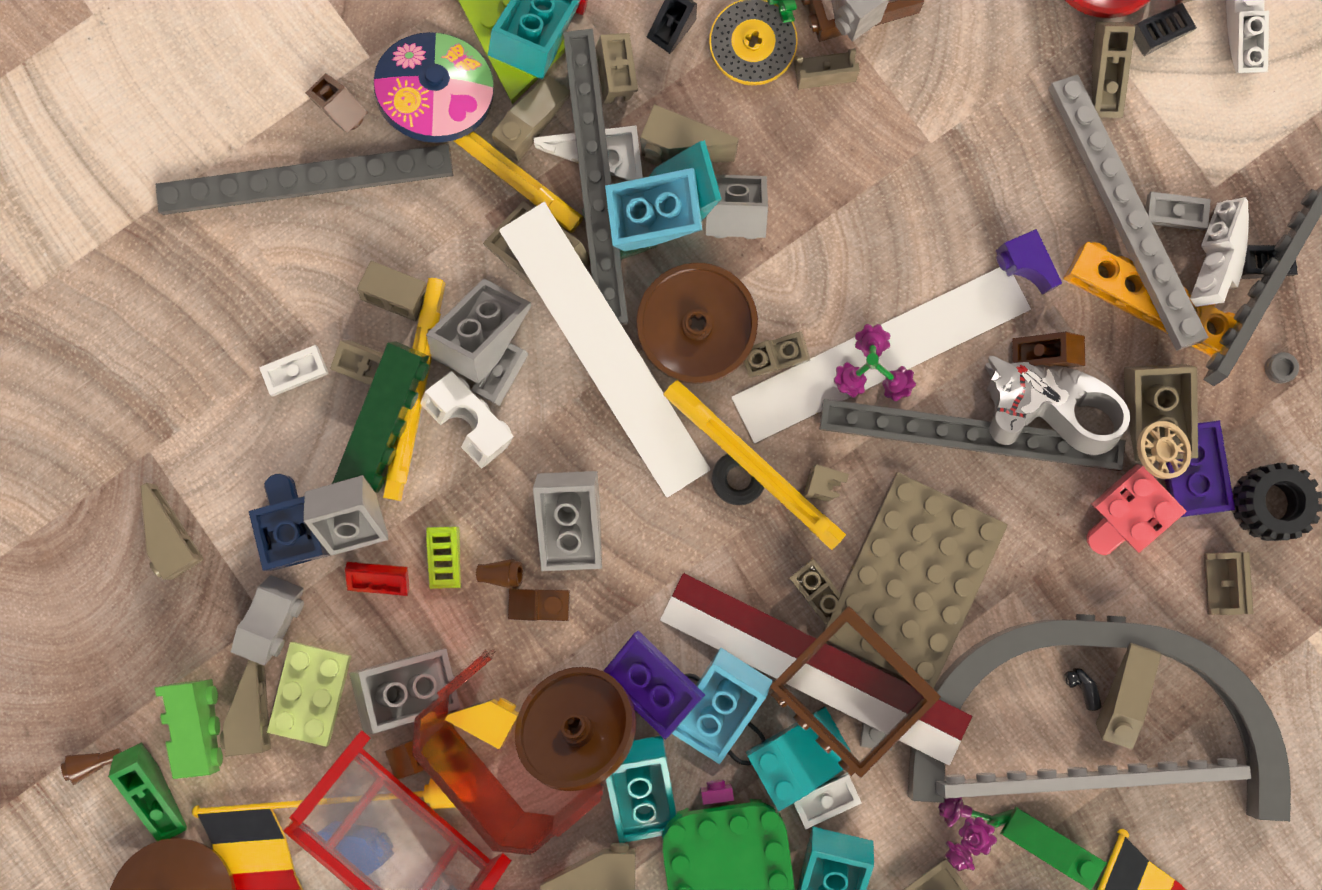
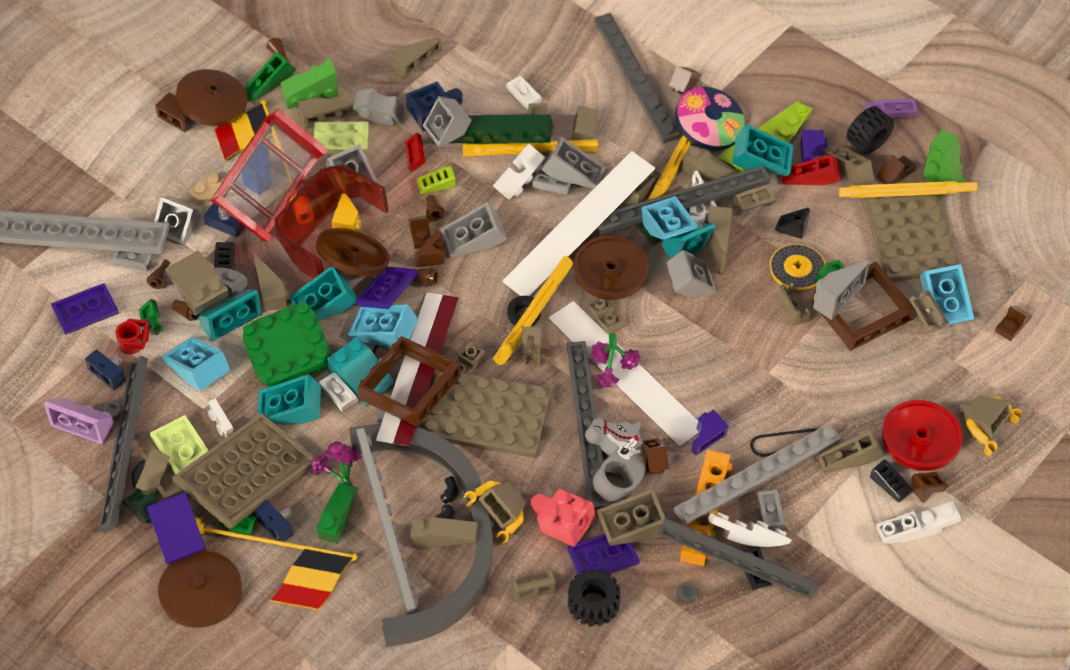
camera: 70 degrees right, 30 degrees down
(594, 604) = (430, 252): none -> reddish brown slope
(636, 617) = (427, 276): none -> reddish brown cone
(717, 792) = (330, 334): magenta plate -> none
(1042, 168) = (775, 434): none -> black piece
(1047, 666) = (451, 492): none -> black arm
(1100, 598) = (502, 503): none -> dark tan torso
(1164, 450) = (606, 514): tan wheel -> none

